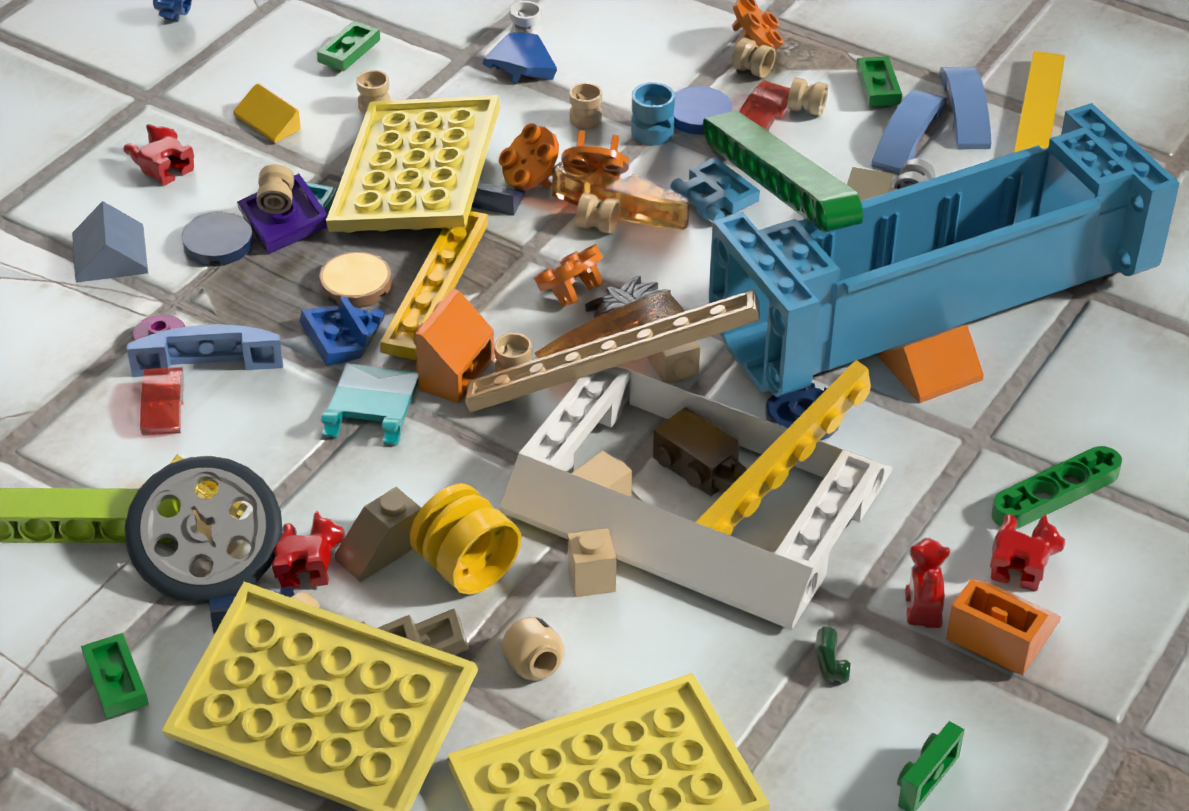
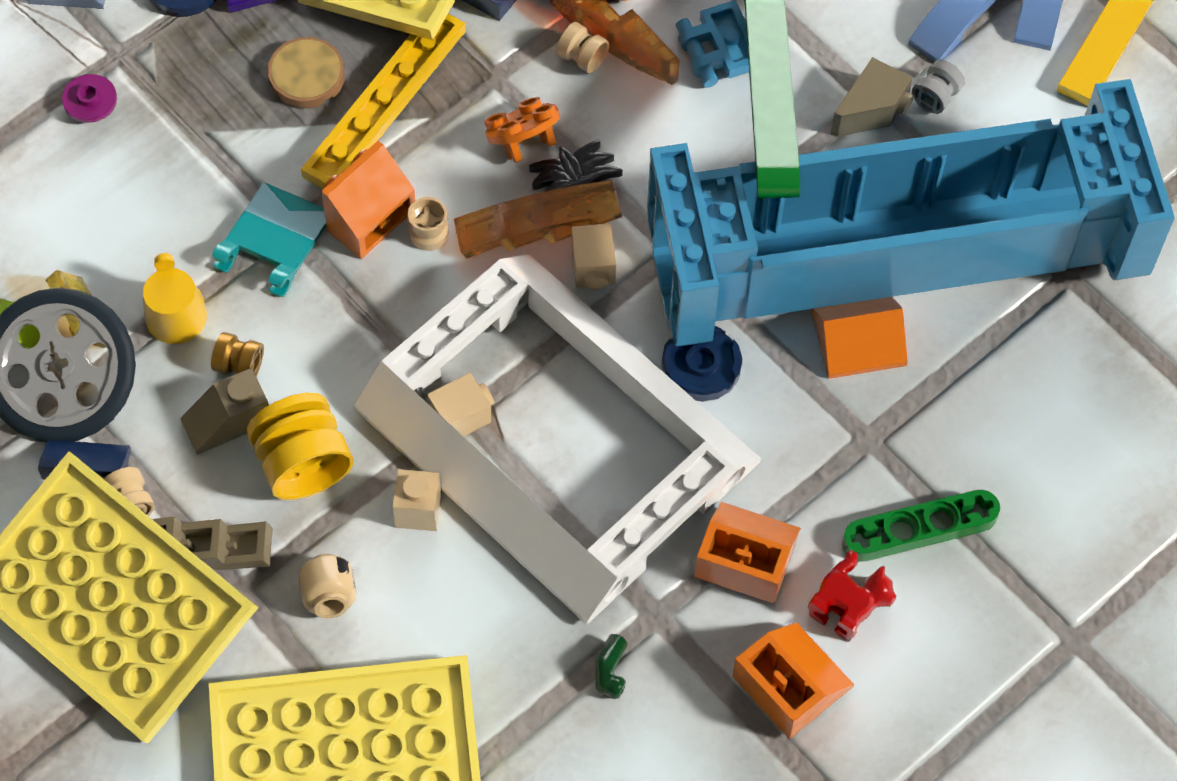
camera: 15 degrees right, 20 degrees up
(161, 401) = (67, 185): clear red slope -> none
(206, 344) = (79, 125): medium blue slope -> none
(296, 461) = (172, 303): none -> yellow hat
(306, 553) = (150, 415): red animal -> none
(341, 331) = (271, 138): blue slope -> none
(368, 488) = (235, 355): none -> pearl gold wheel
(613, 350) = (516, 261): tan tile -> none
(698, 452) = (574, 396): dark brown hinge -> none
(792, 446) = (652, 428): yellow plate -> none
(901, 528) = (746, 552): none -> orange slope
(926, 584) = (732, 615): red animal -> none

